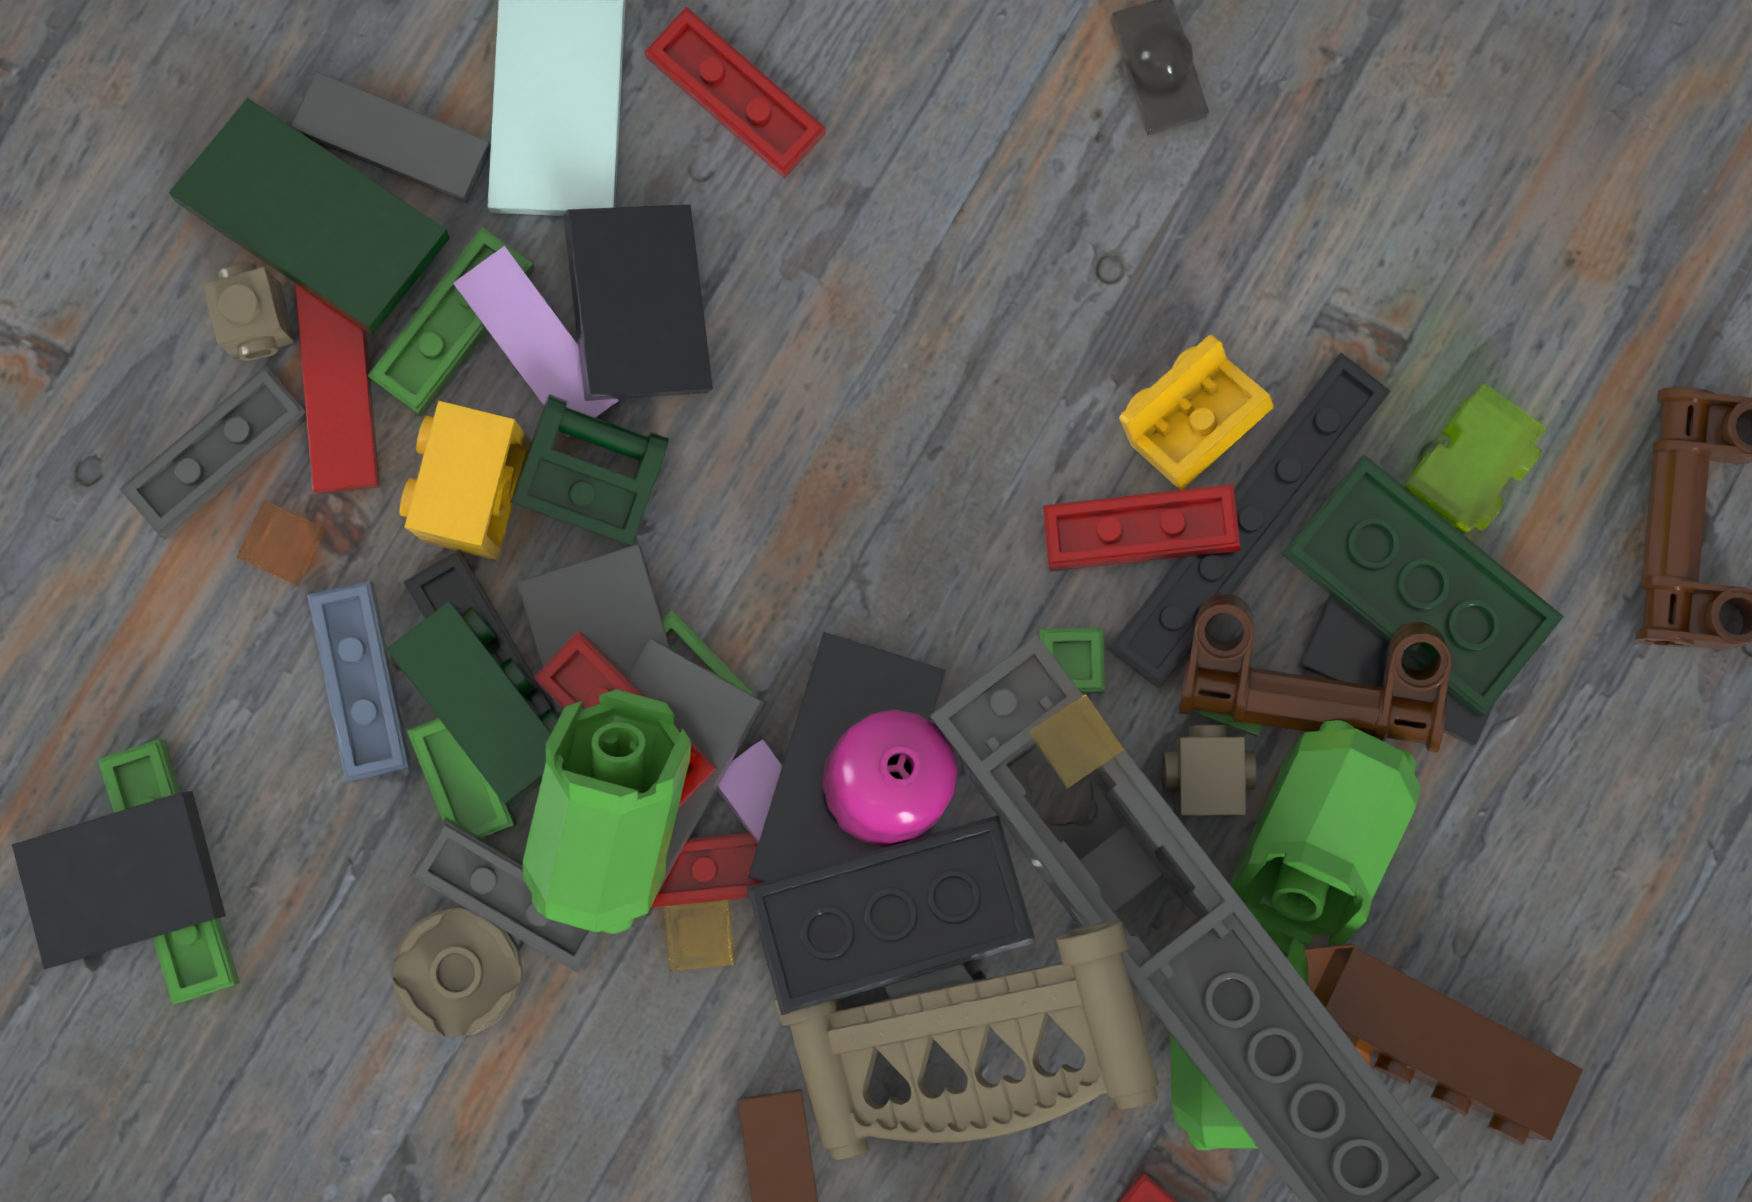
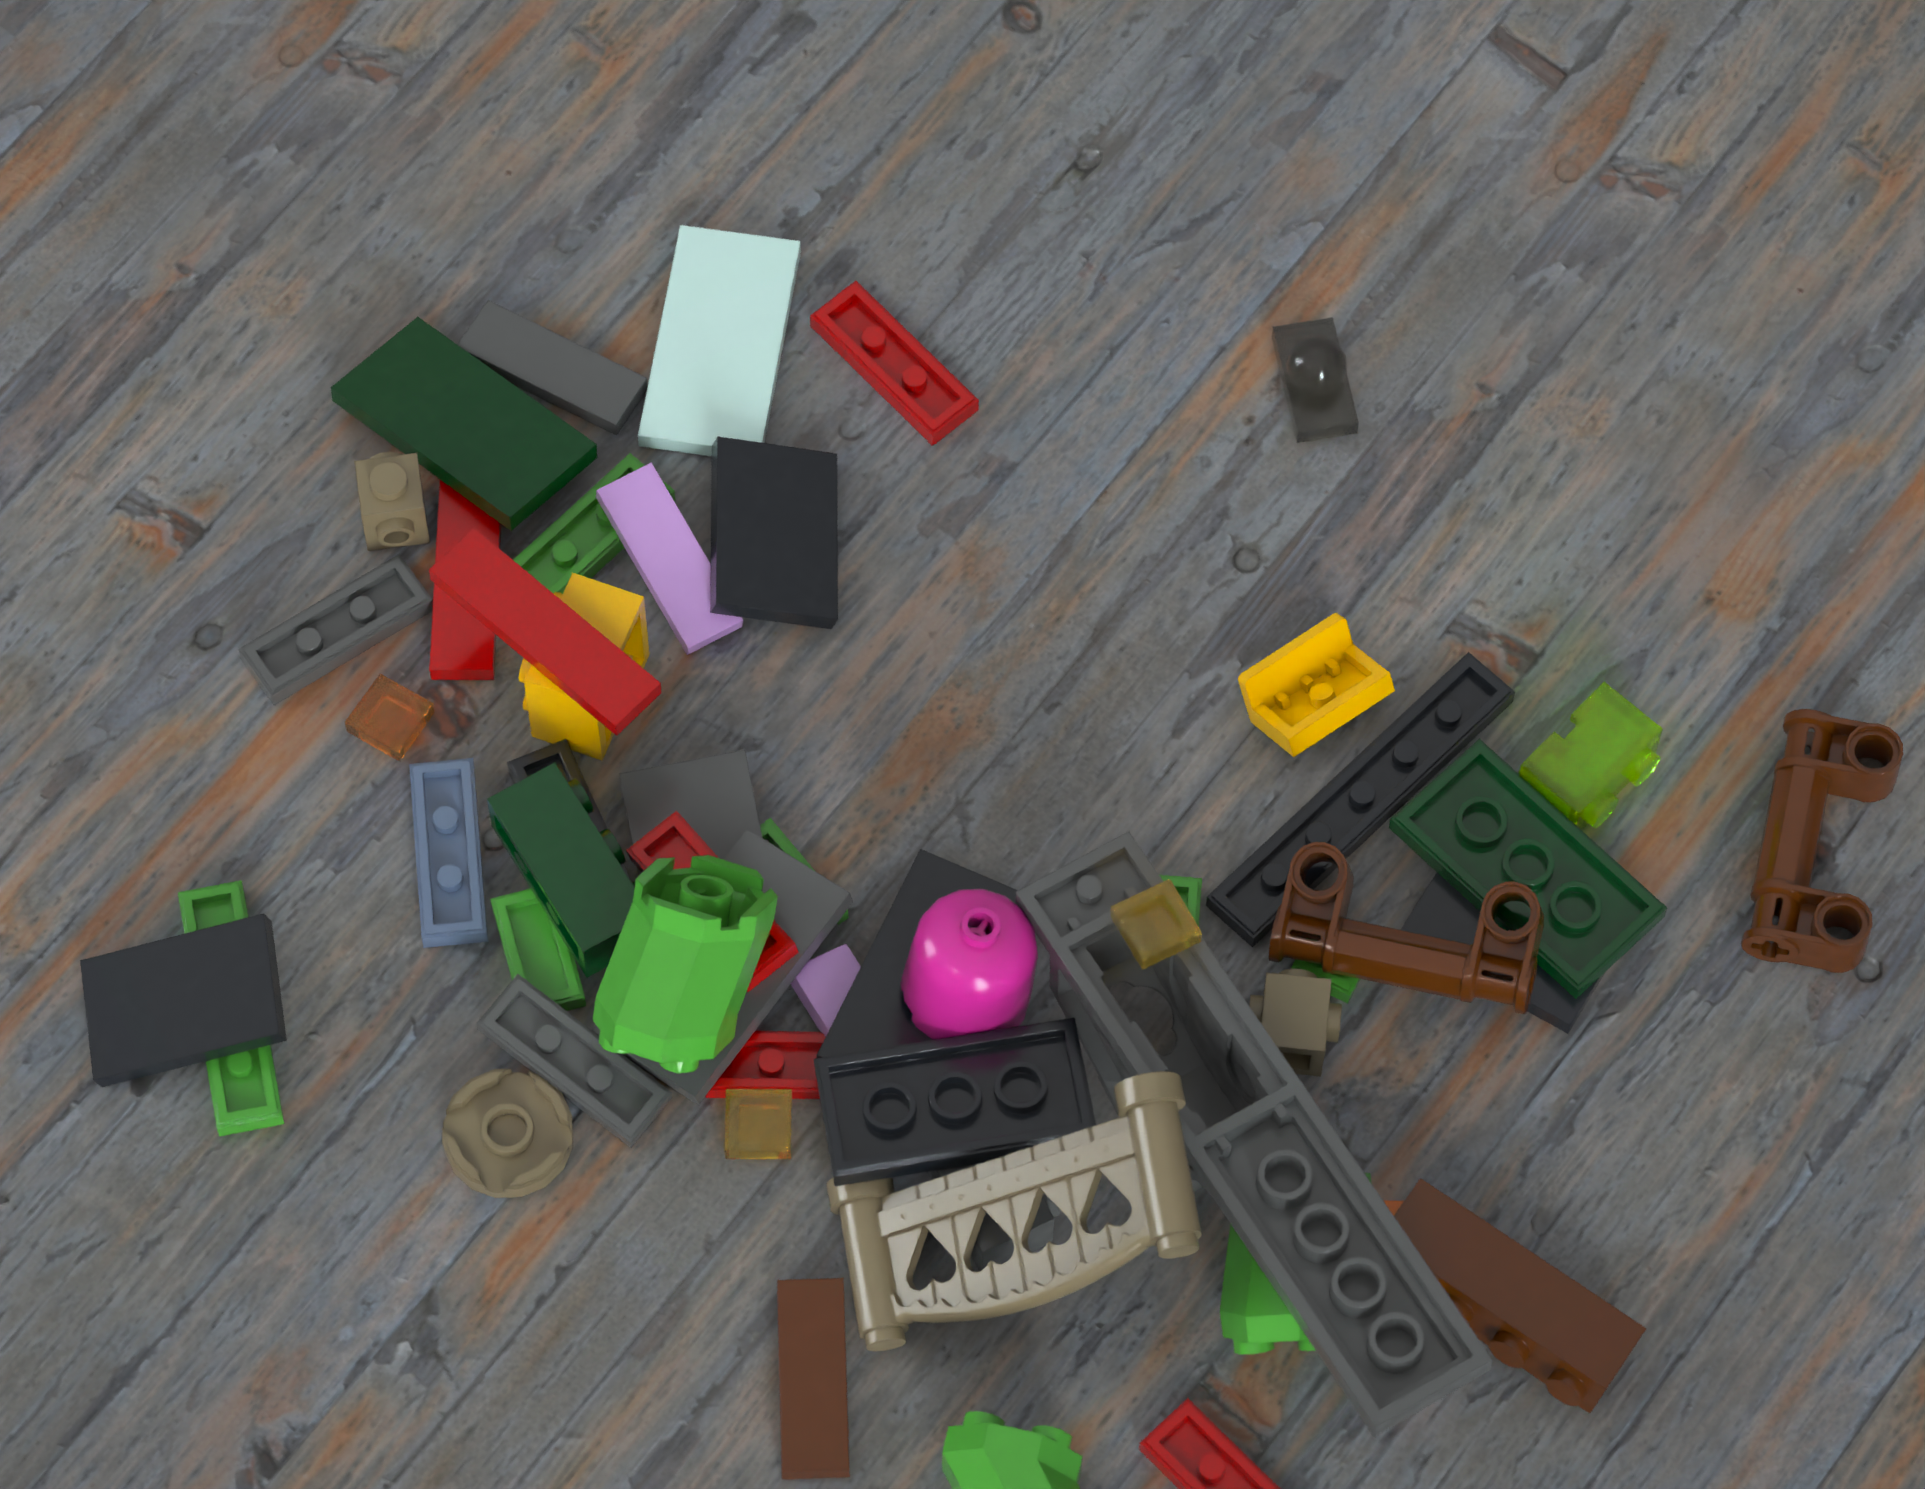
camera: 10 degrees right, 20 degrees down
(417, 474) = (545, 631): none -> red tile
(581, 490) = (700, 695): dark green plate -> none
(1141, 528) = (1250, 788): red tile -> none
(1327, 833) = (1410, 1073): bright green brick -> none

